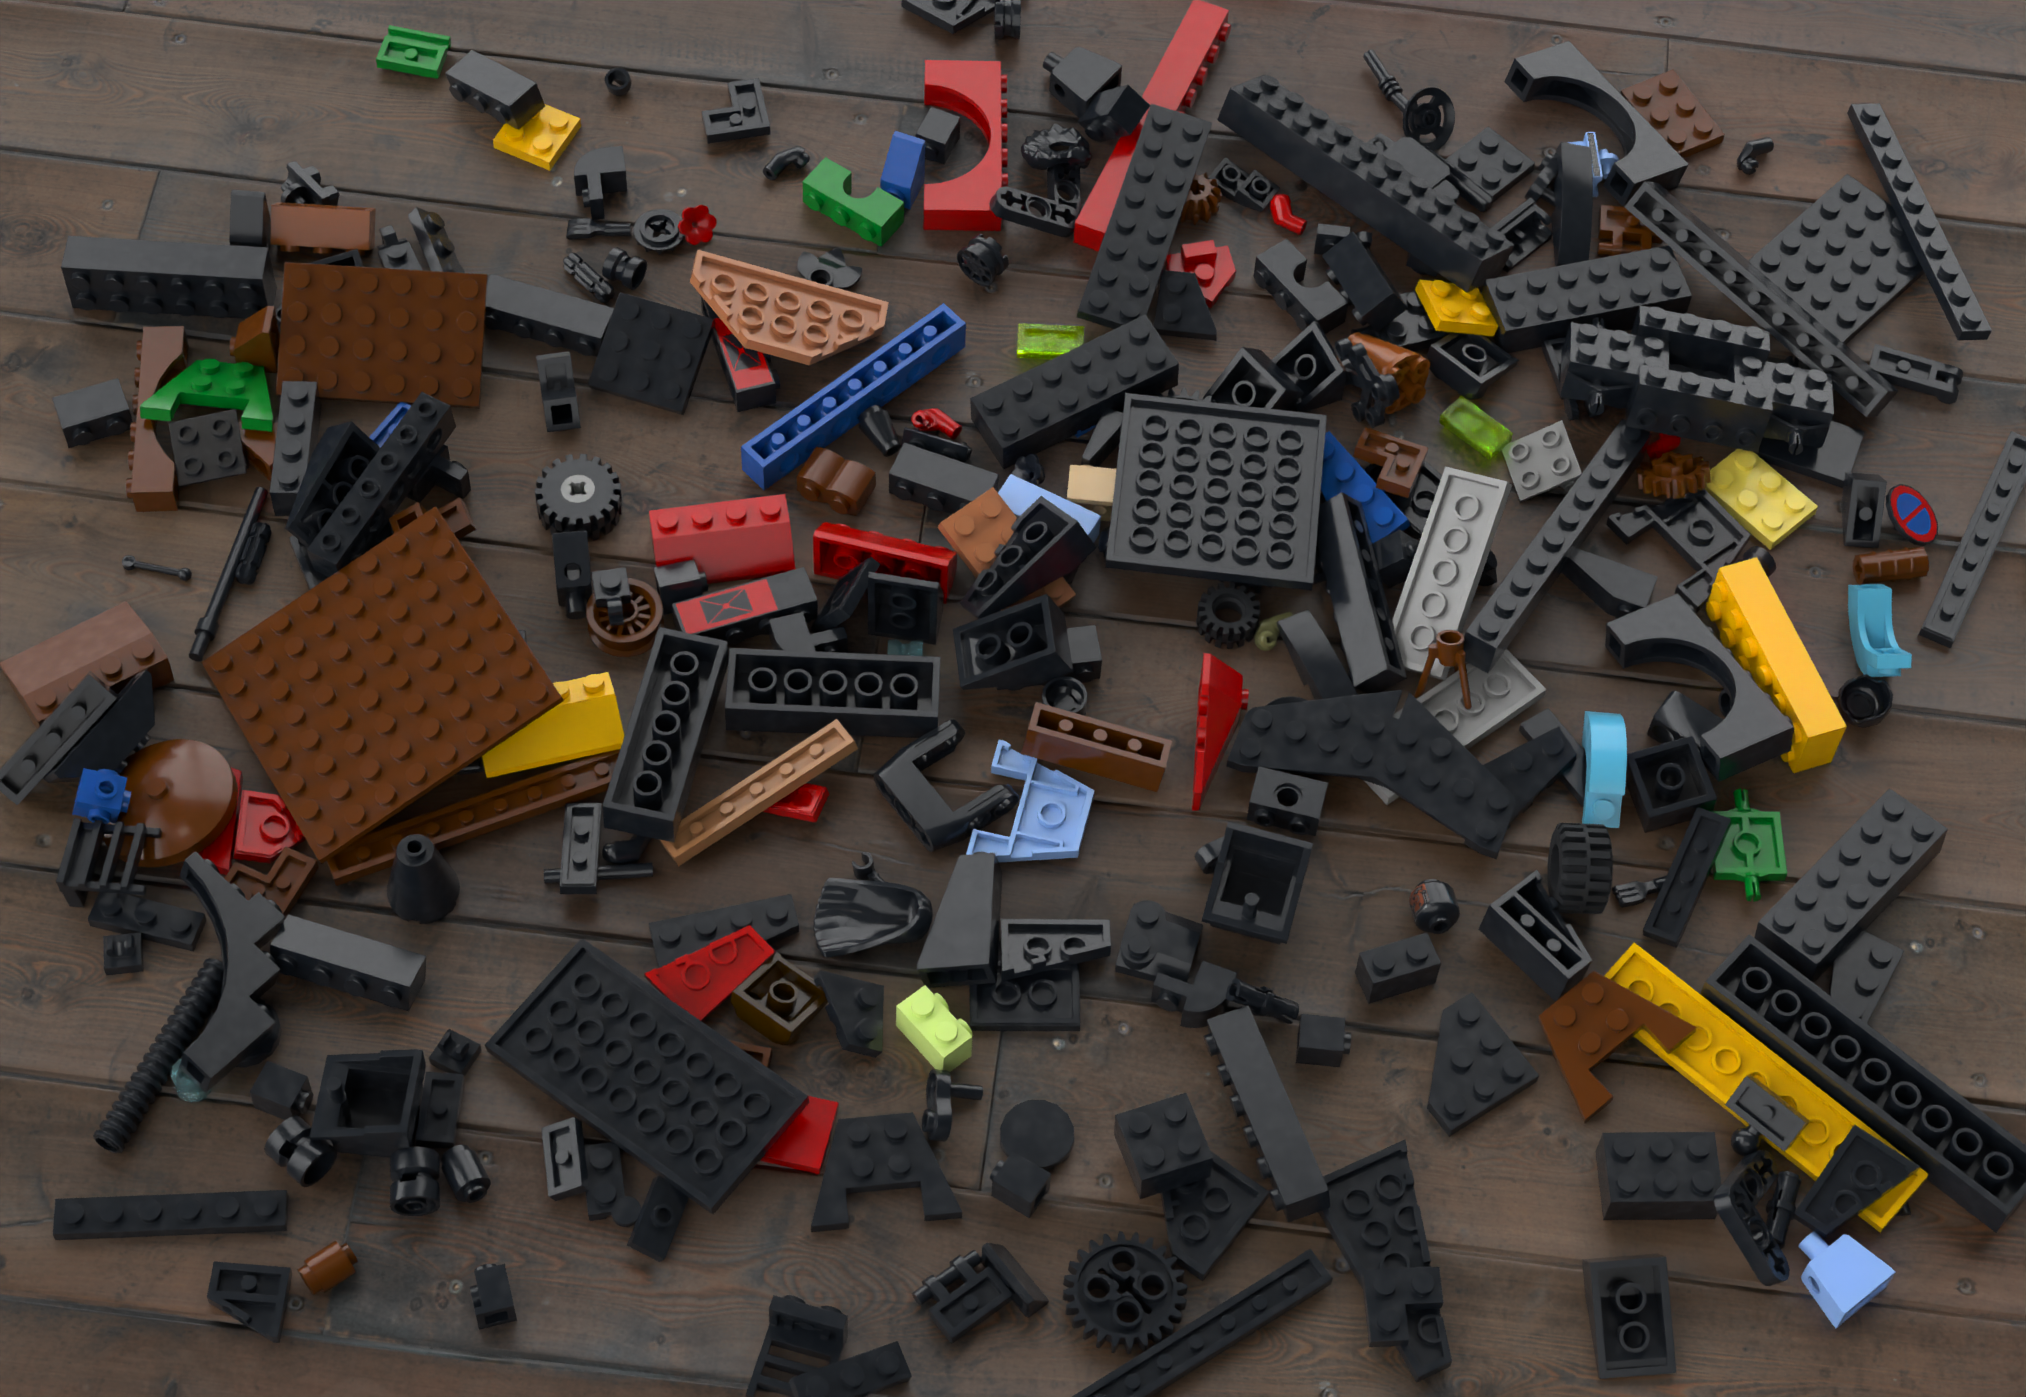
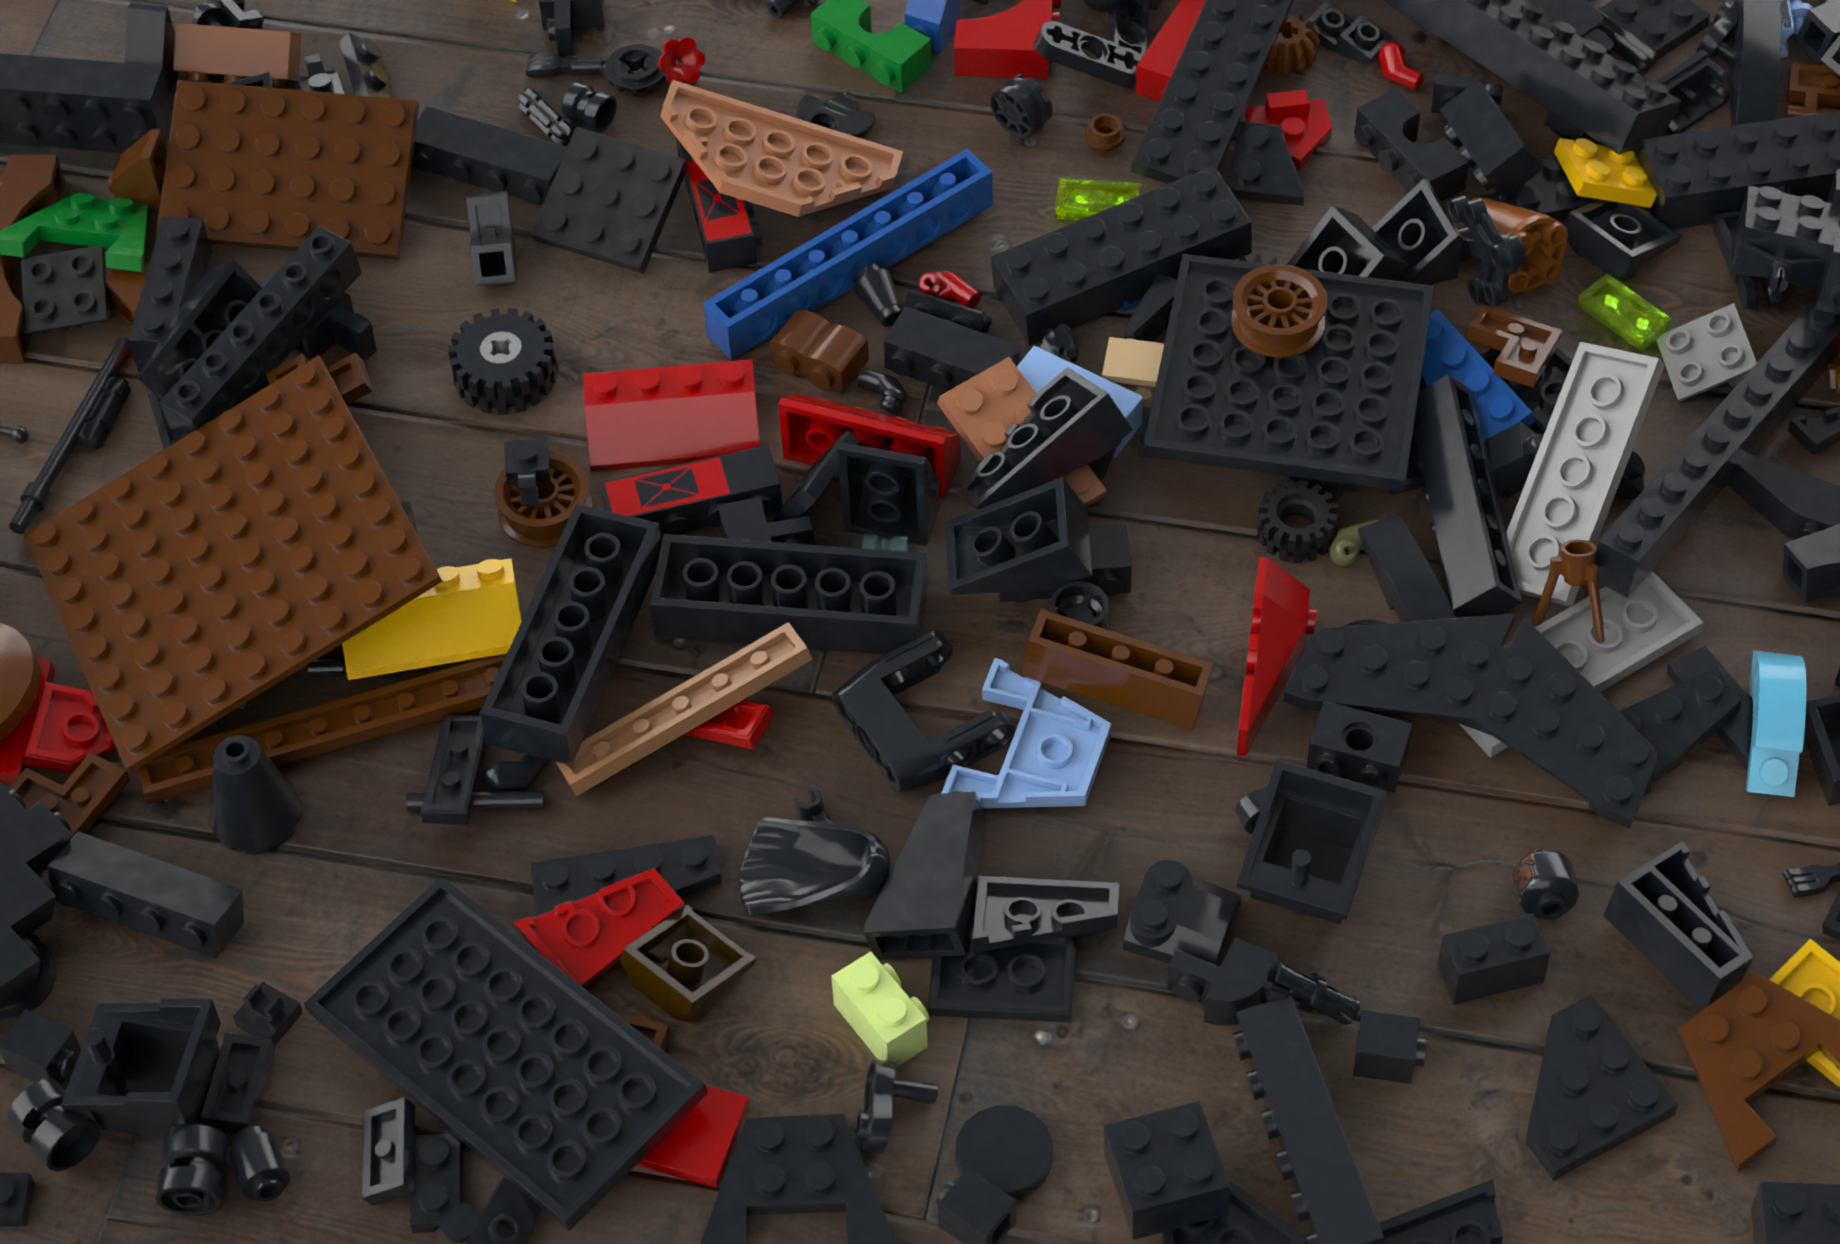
camera: 10 degrees right, 5 degrees down
(572, 572) = (481, 439): black torso -> none
(678, 583) = (612, 459): black brick -> none
(855, 1011) = (781, 983): black wing -> none
(892, 509) = (885, 385): none -> black arm
(1056, 275) = (1105, 132): none -> reddish brown plate
(1211, 459) = (1279, 310): none -> reddish brown wheel
(1580, 867) = (1741, 840): black tyre -> none

